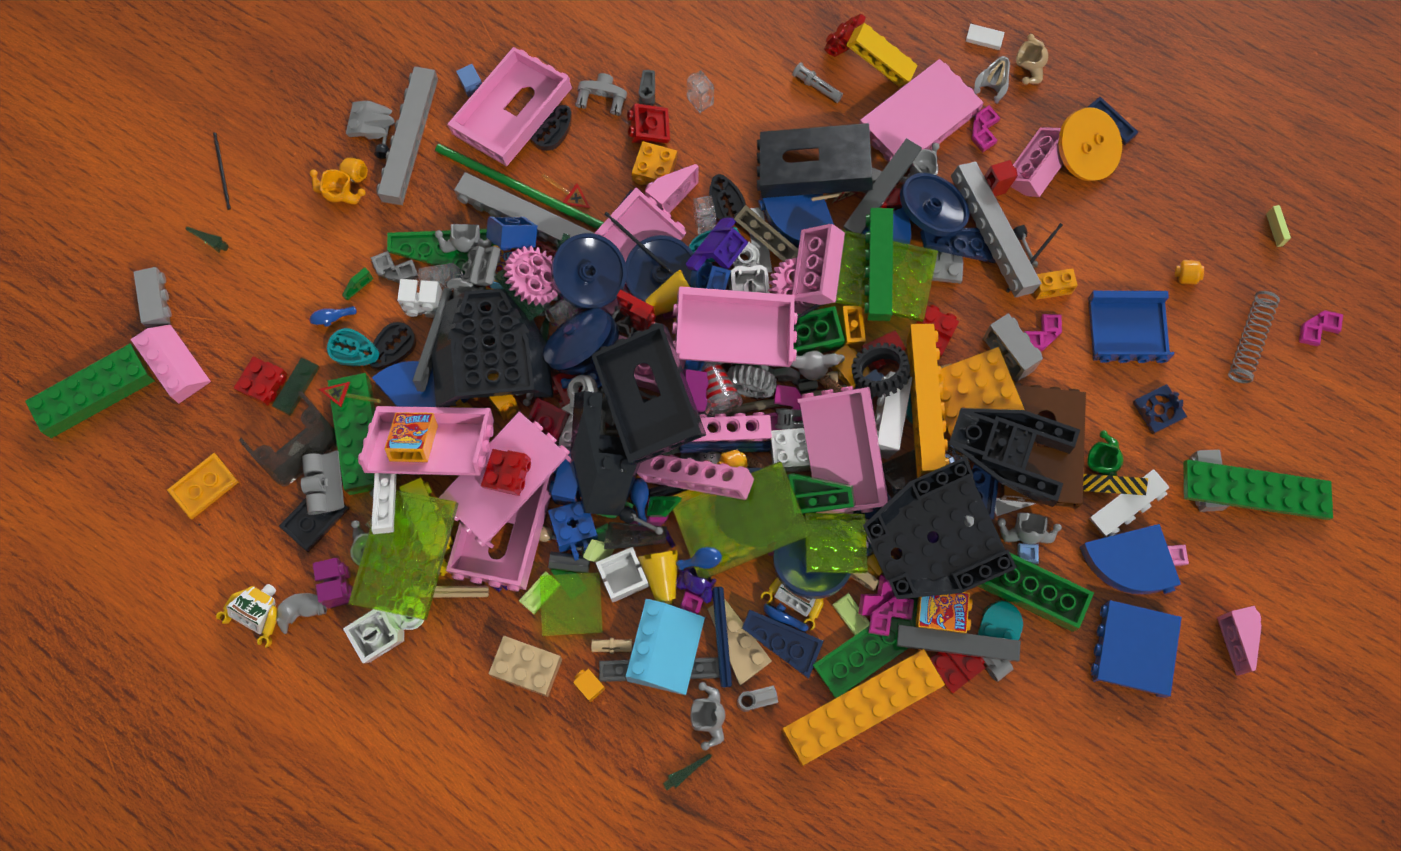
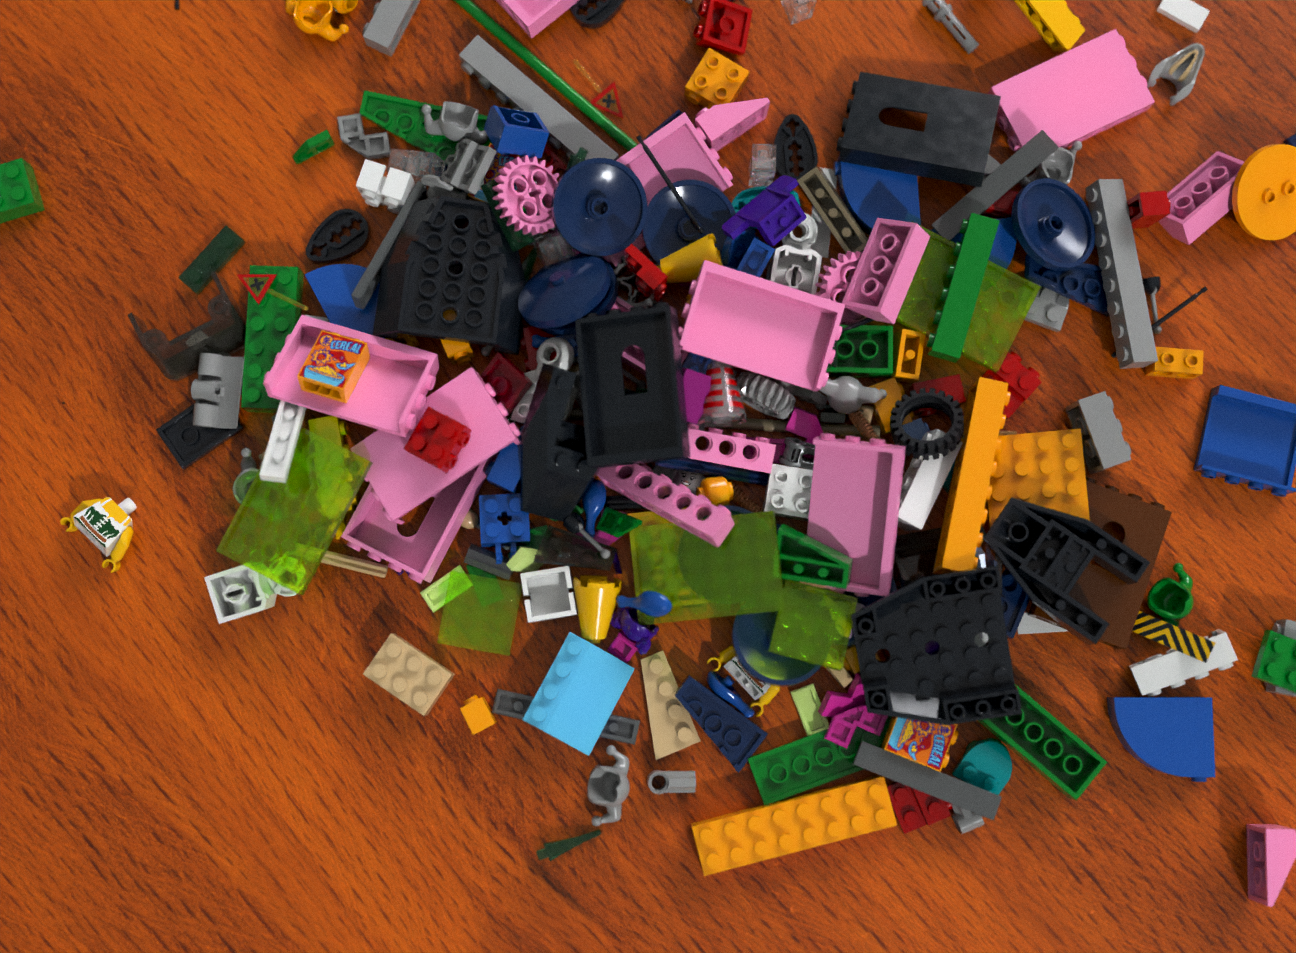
camera: 10 degrees right, 10 degrees up
(152, 297) = (60, 103): light grey brick -> none
(171, 361) = (67, 191): bright pink slope -> none
(202, 486) = (76, 357): light orange tile -> none
(214, 241) = (150, 48): clear green piece -> none
(261, 381) = (171, 242): red plate -> none
(296, 605) = (160, 533): light grey animal -> none
(328, 315) = (269, 180): blue piece -> none
(335, 589) = (204, 505): magenta piece -> none
(353, 339) = (282, 239): teal piece -> none
(611, 645) = (516, 674): tan pin -> none
(722, 637) = (648, 698): dark blue axle -> none
(839, 196) = (934, 182): tan piece -> none
(980, 134) = (1139, 141): dark pink tile -> none
(1028, 552) = (1042, 690): light blue tile -> none
(1029, 529) = (1052, 662): light grey piece -> none
(1032, 57) = (1236, 55): tan piece -> none
(1051, 329) = (1152, 419): dark pink tile -> none
(1136, 648) = (1138, 838): blue panel -> none
(1149, 416) = (1240, 556): dark blue piece -> none
(1178, 555) = (1224, 738): bright pink tile -> none

